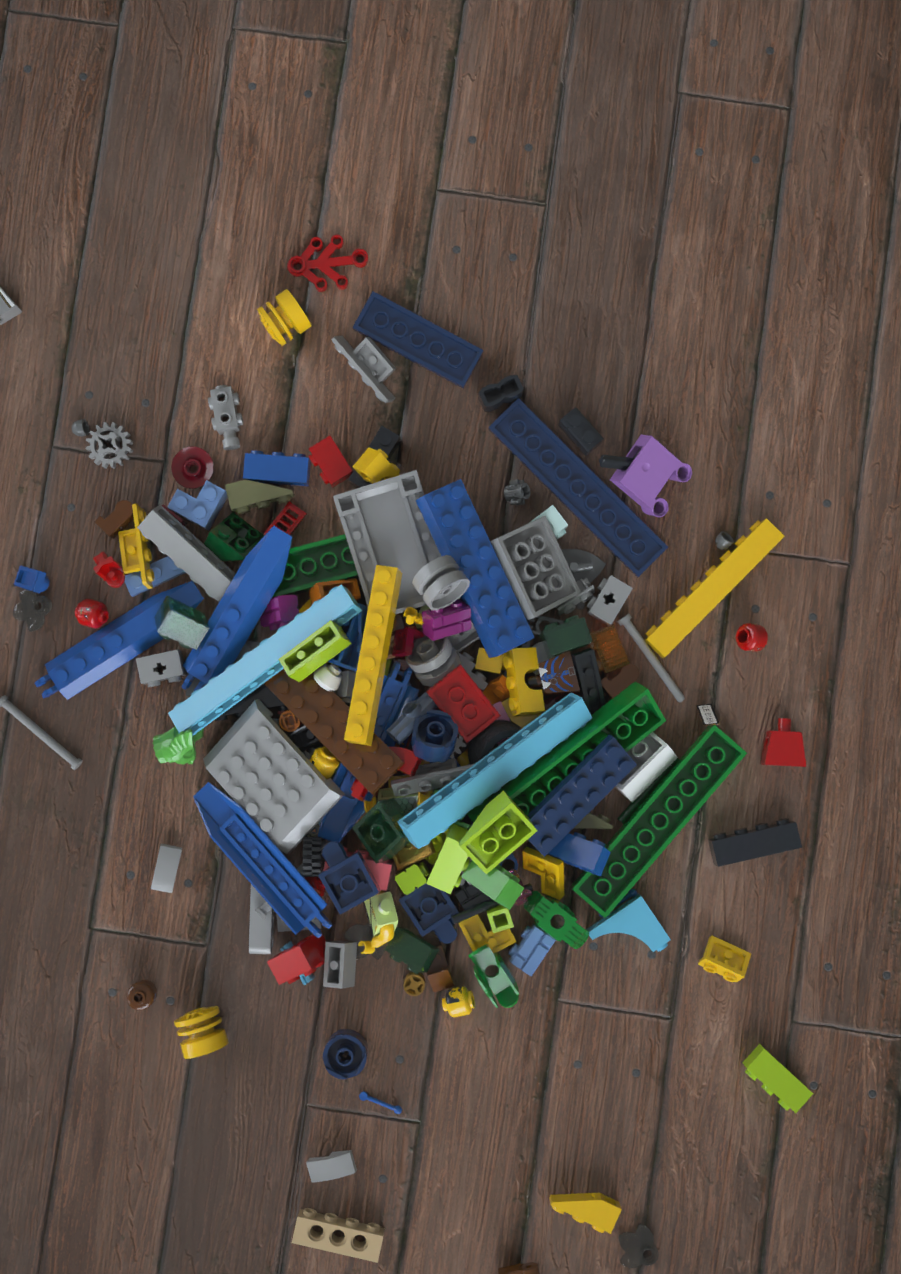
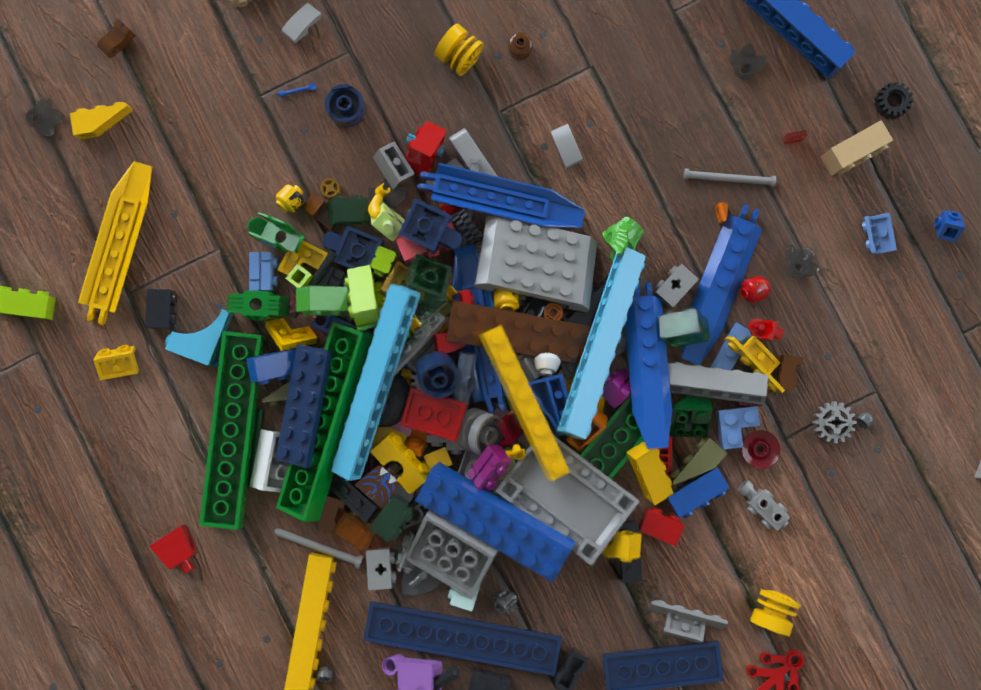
camera: 145 degrees right, 0 degrees up
(32, 579) = (817, 282): blue tile -> none
(70, 705) = (721, 212): none -> orange slope
(306, 514) = (650, 473): none -> yellow brick
(314, 651) = (569, 375): lime brick -> none
(440, 582) = (512, 492): light grey wheel -> none
(496, 832) = (341, 336): lime slope -> none
(648, 1075) = (116, 242): none -> yellow hinge
(649, 981) = (160, 309): none -> black brick
(707, 714) = (248, 533): sticker -> none
(751, 637) = (254, 615): red head -> none
(754, 843) = (150, 463): black brick -> none

